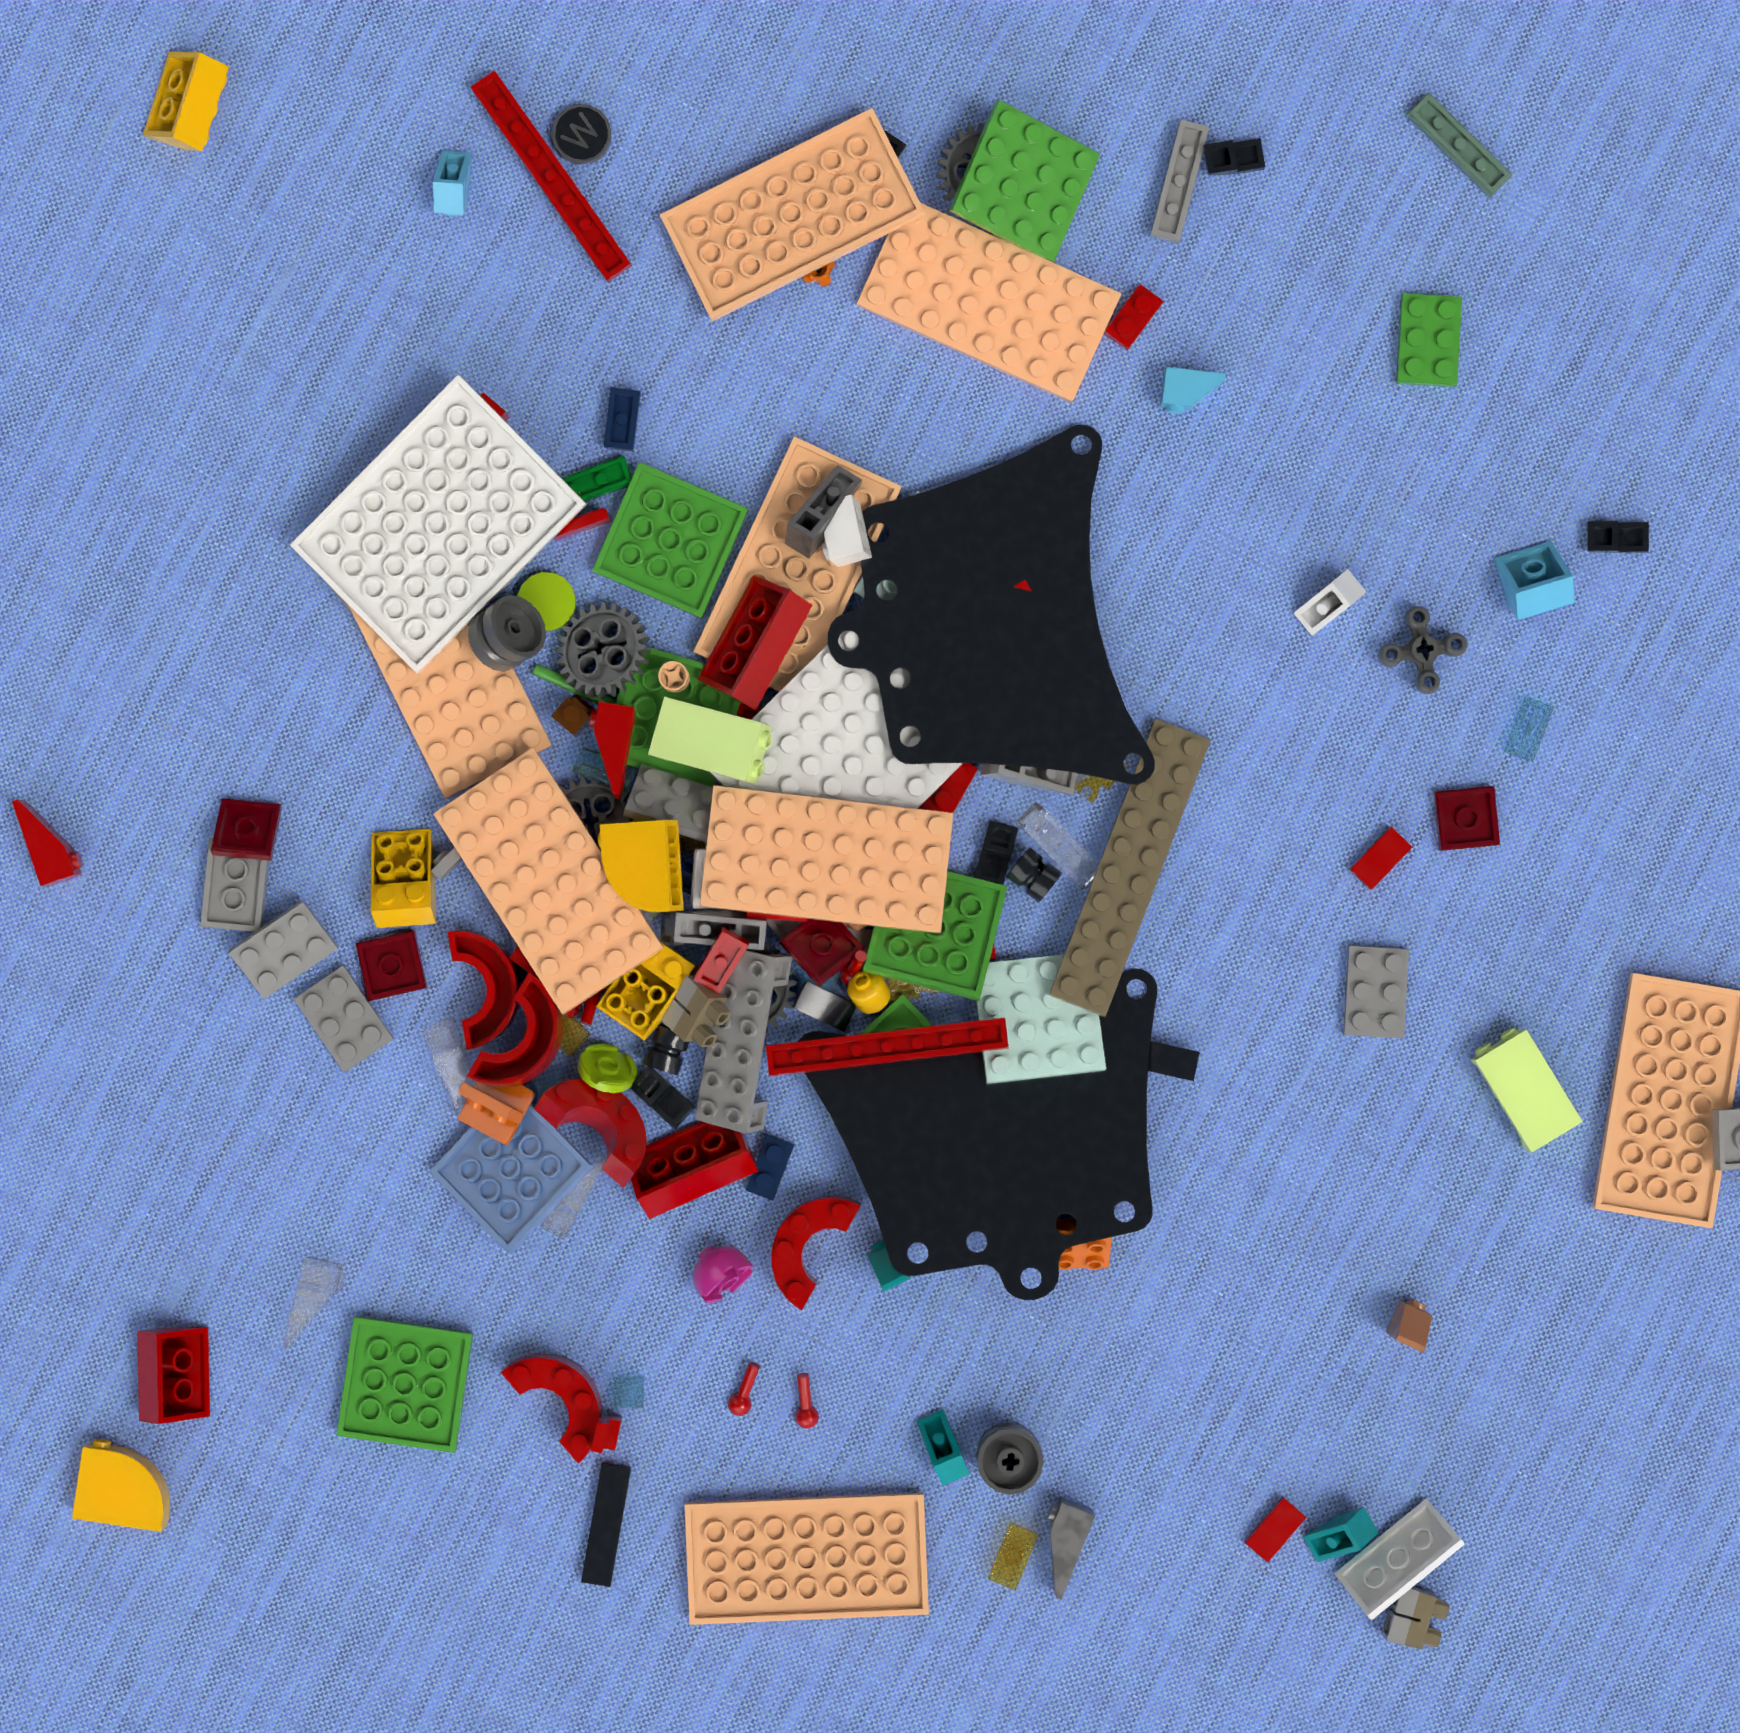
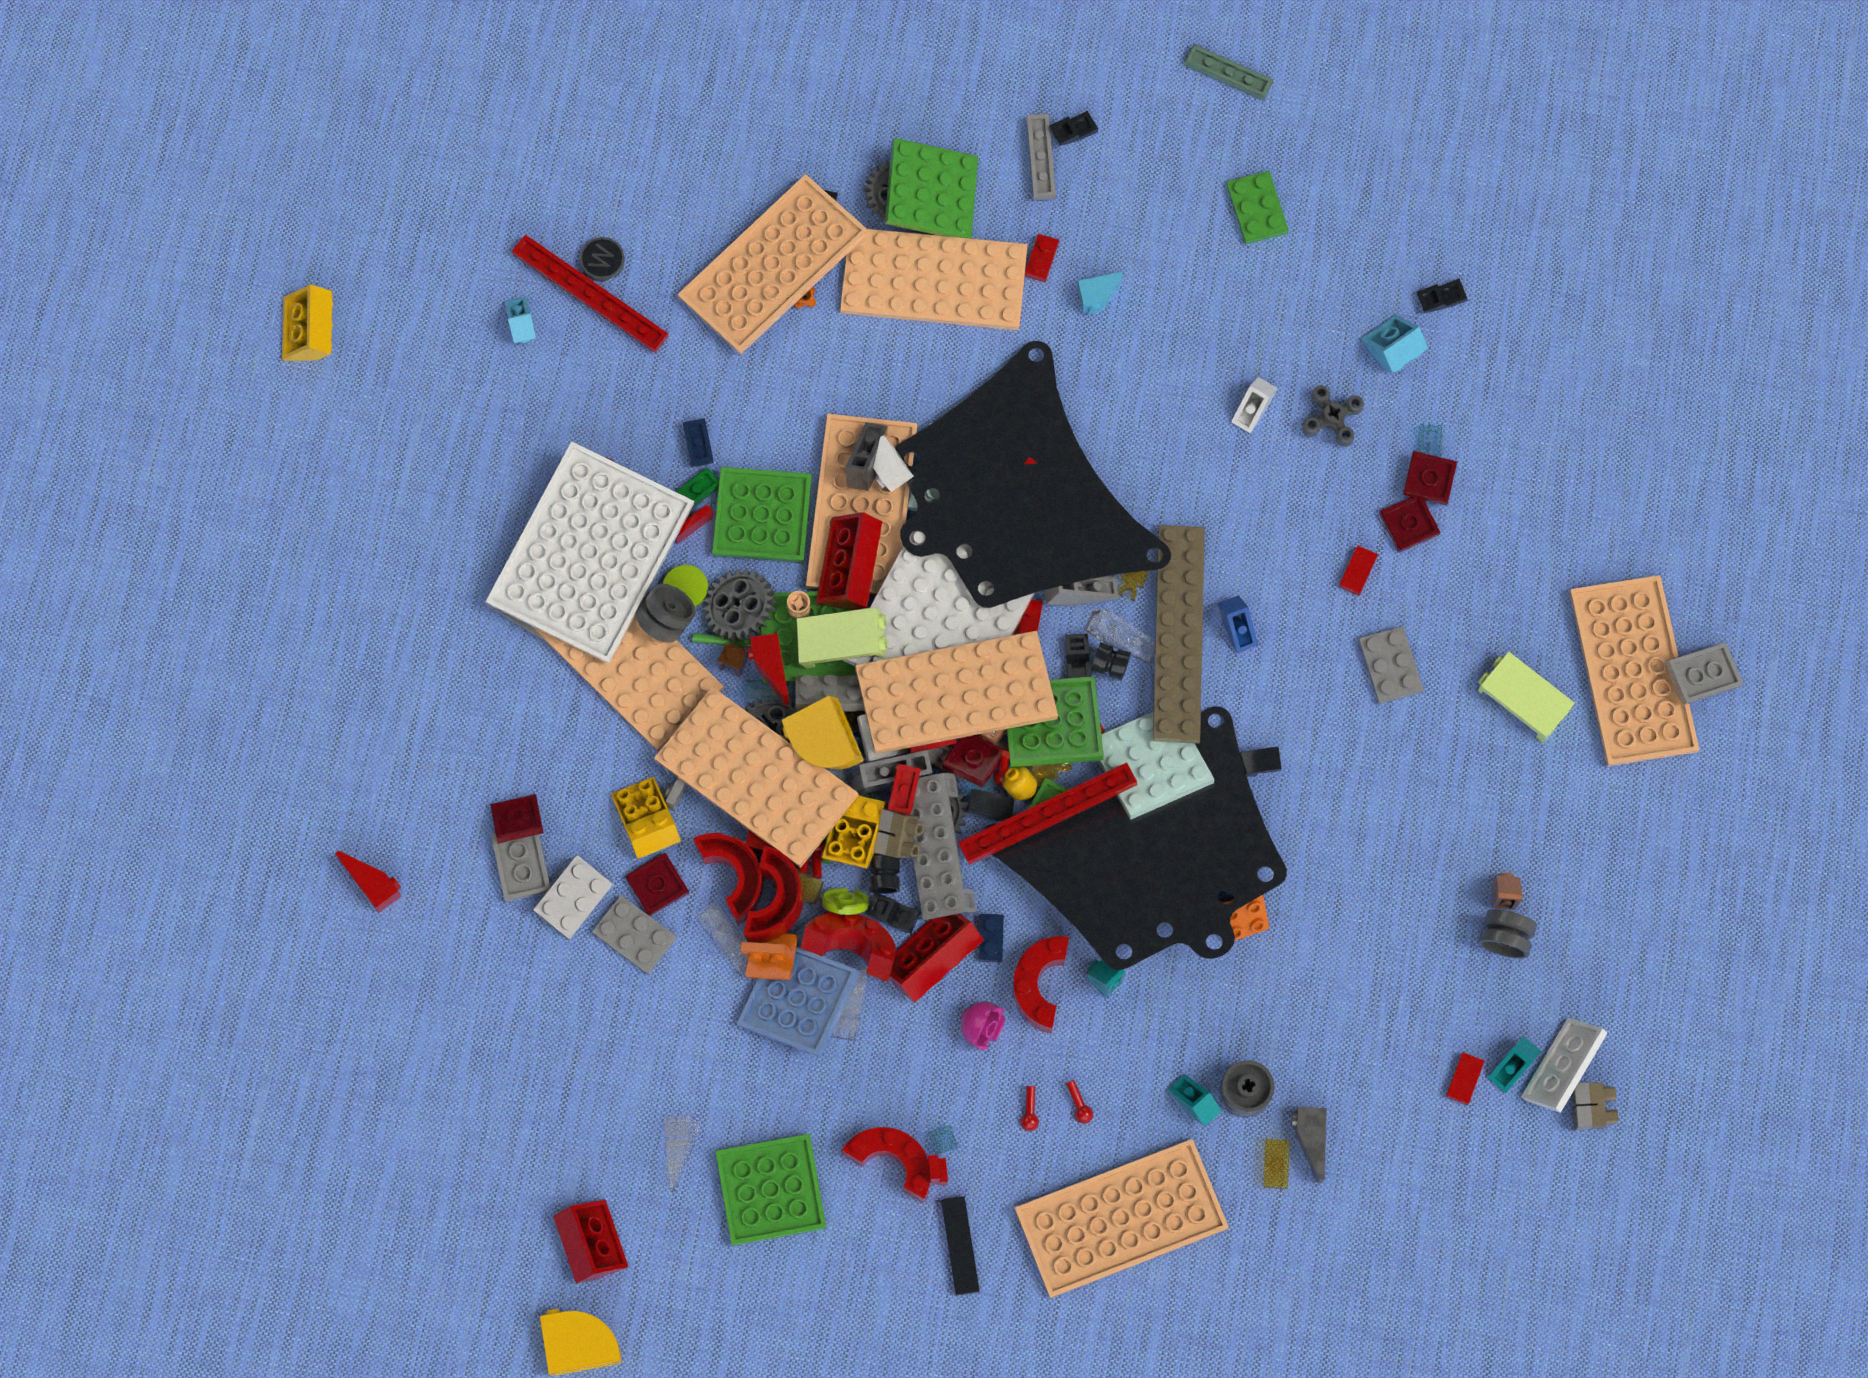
camera: 20 degrees left, 15 degrees down
(1207, 877) = (1238, 623): none -> blue slope
(1391, 1379) = (1507, 933): none -> dark grey wheel
(1513, 771) = (1430, 478): none -> dark red tile

